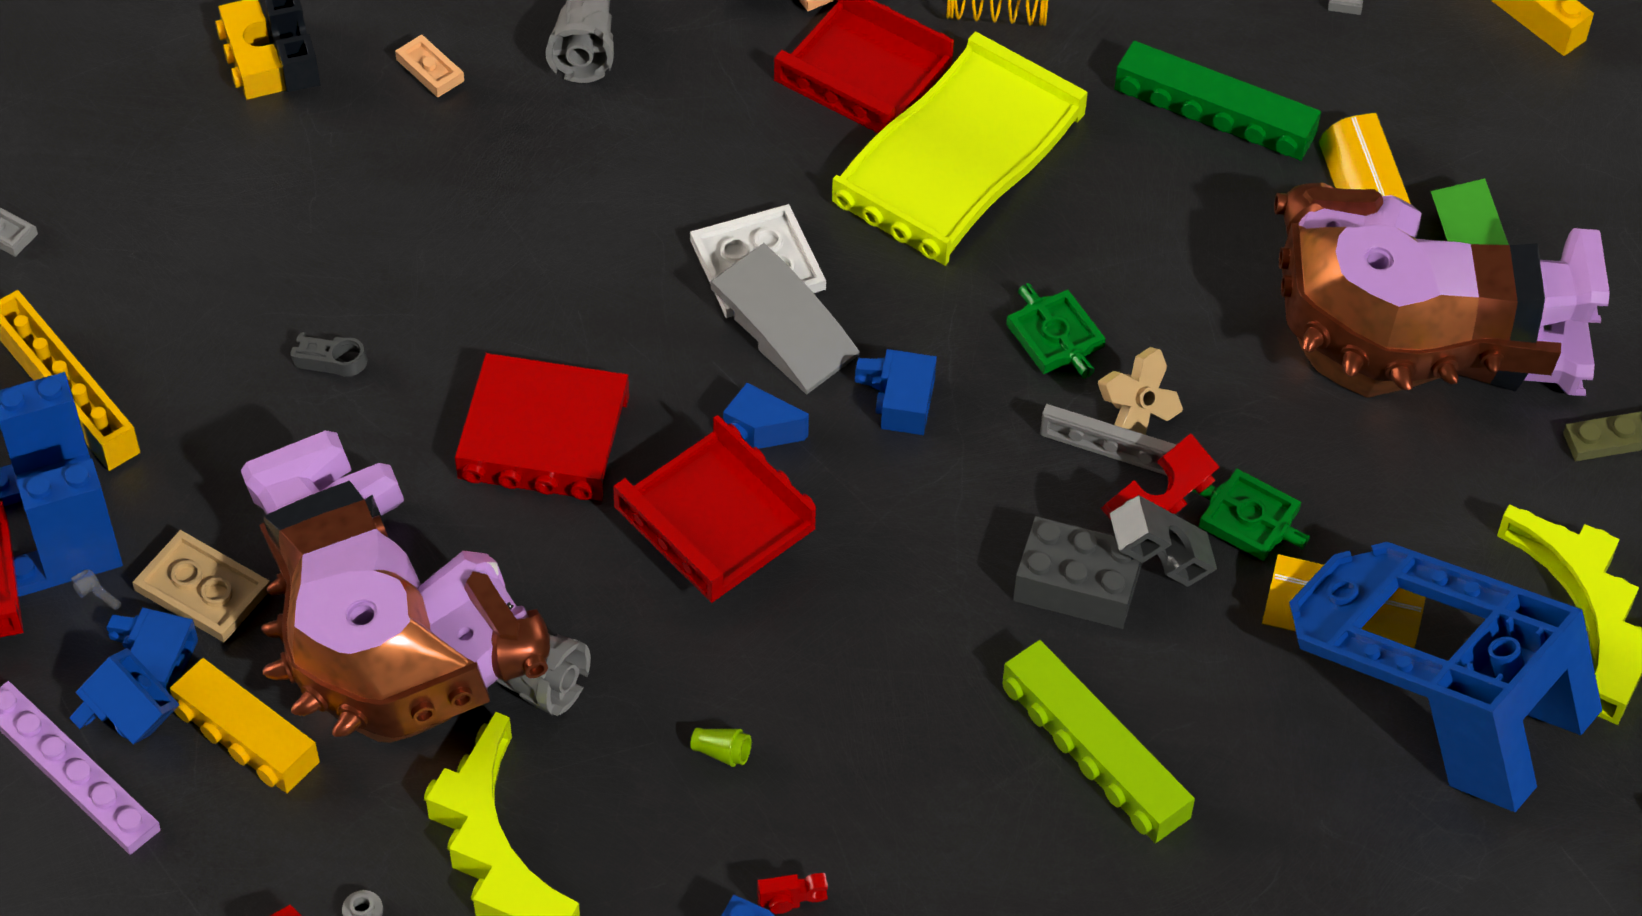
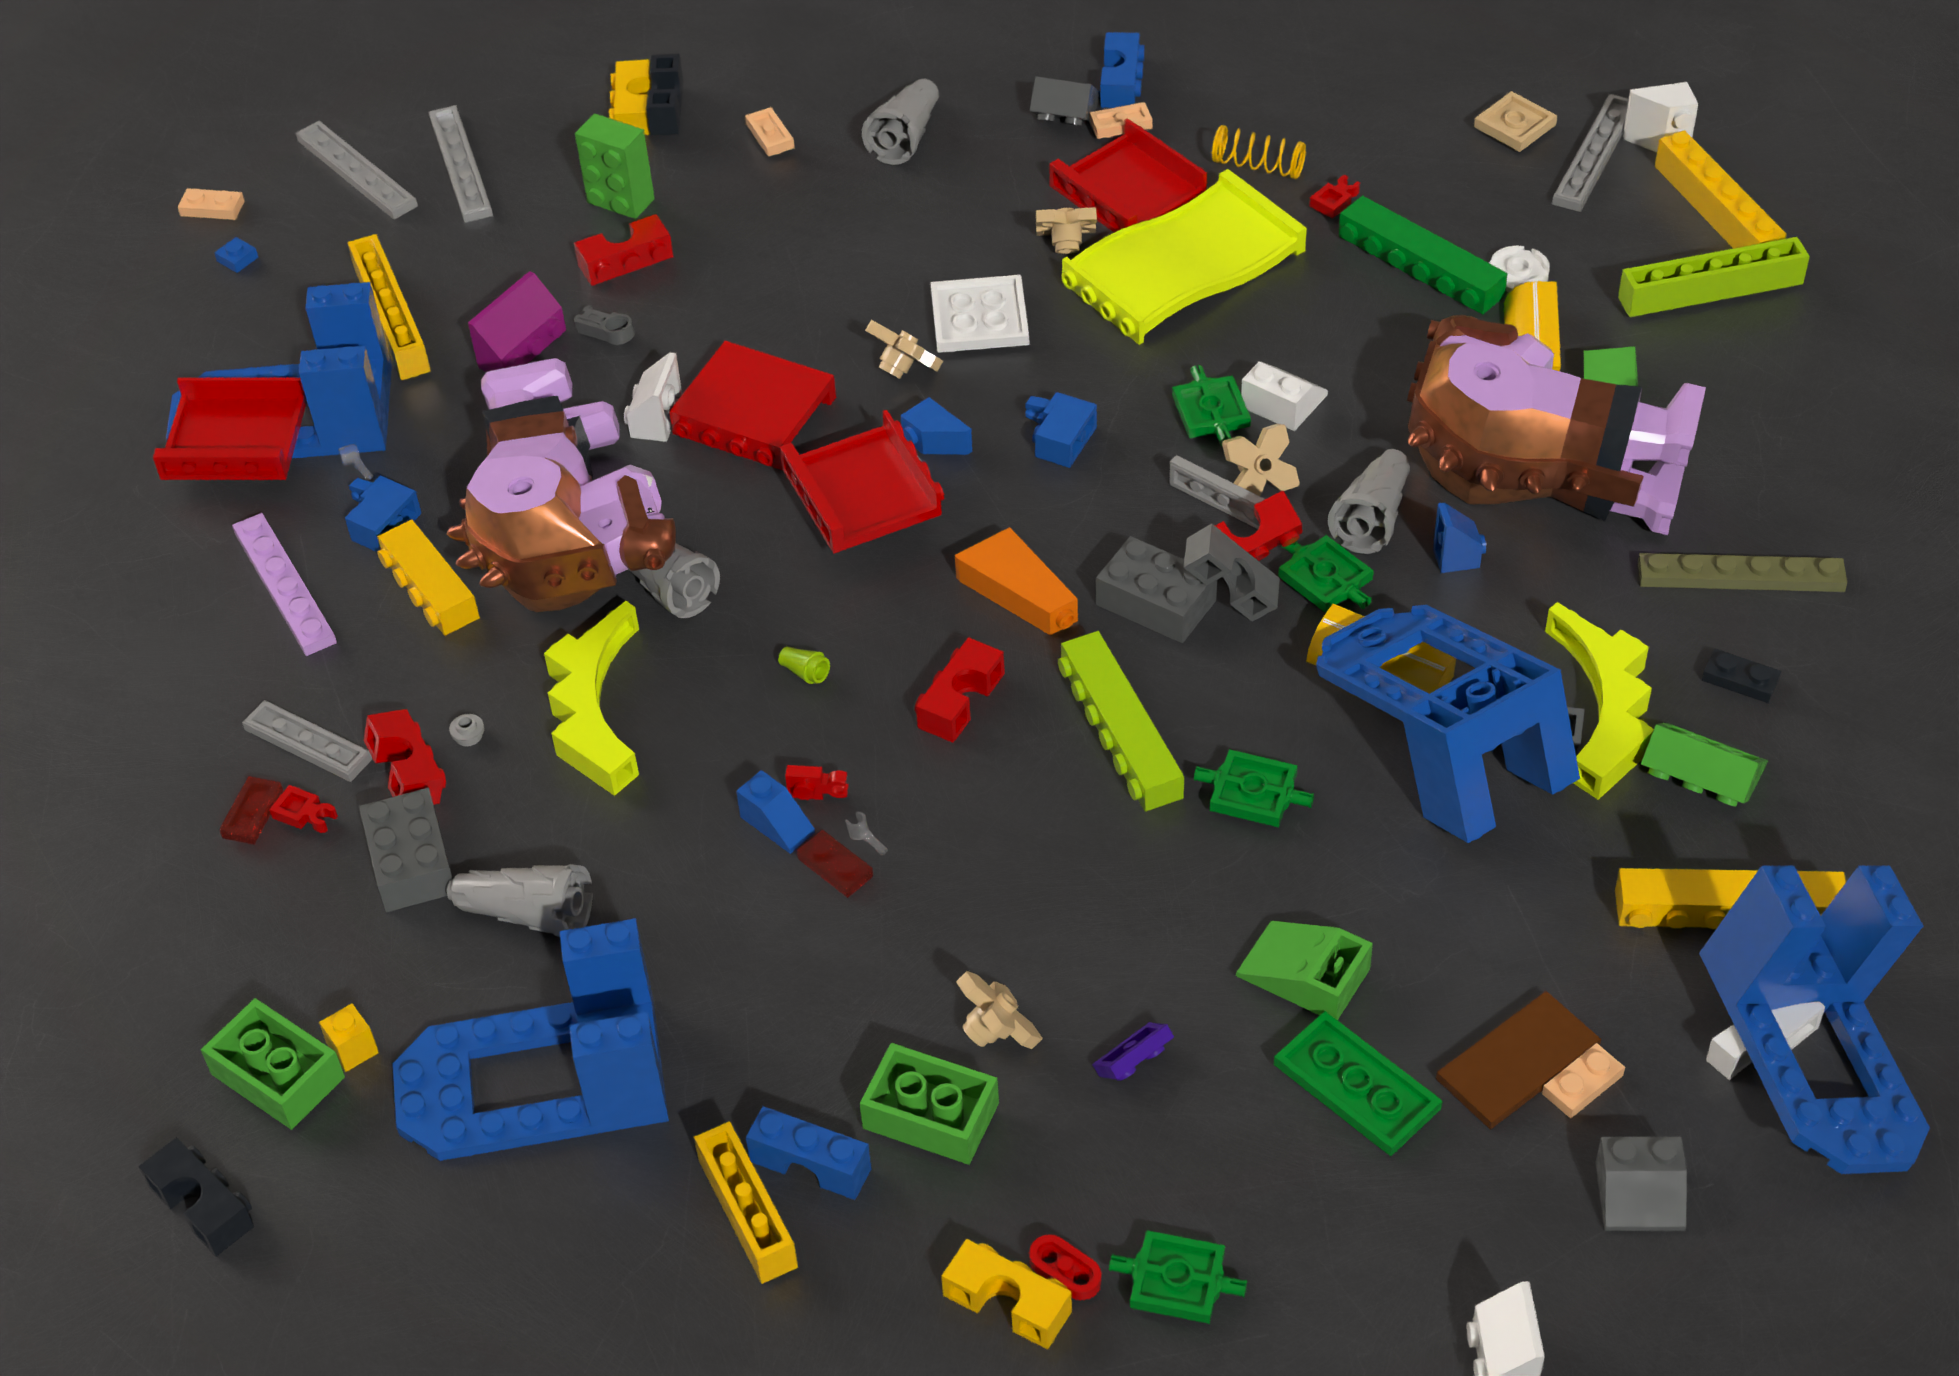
camera: 20 degrees right, 5 degrees down
(71, 169) = (460, 164): none -> light grey tile
(125, 695) = (341, 535): blue hinge -> none
(202, 585) = (433, 470): tan plate -> none
(232, 382) = (516, 325): none -> magenta slope
(275, 149) = (615, 165): none -> bright green brick
(297, 270) = (607, 260): none -> red arch
(428, 445) = (653, 399): none -> white slope
(691, 328) = (901, 351): none -> tan plant
(785, 318) = (982, 357): light grey slope -> none
(820, 135) = (1066, 226): none -> tan plant
(913, 712) = (970, 669): none -> red arch
(924, 592) = (1018, 581): none -> orange slope
(1097, 45) = (1334, 199): none -> red plate
(1126, 303) = (1280, 395): none -> white slope
(1265, 792) = (1253, 788): none -> green plate
(1273, 424) = (1369, 506): none -> light grey cone
(1327, 93) = (1521, 265): none -> white tile
(1377, 450) = (1456, 541): none -> blue slope
(1532, 76) = (1713, 276): none -> lime brick

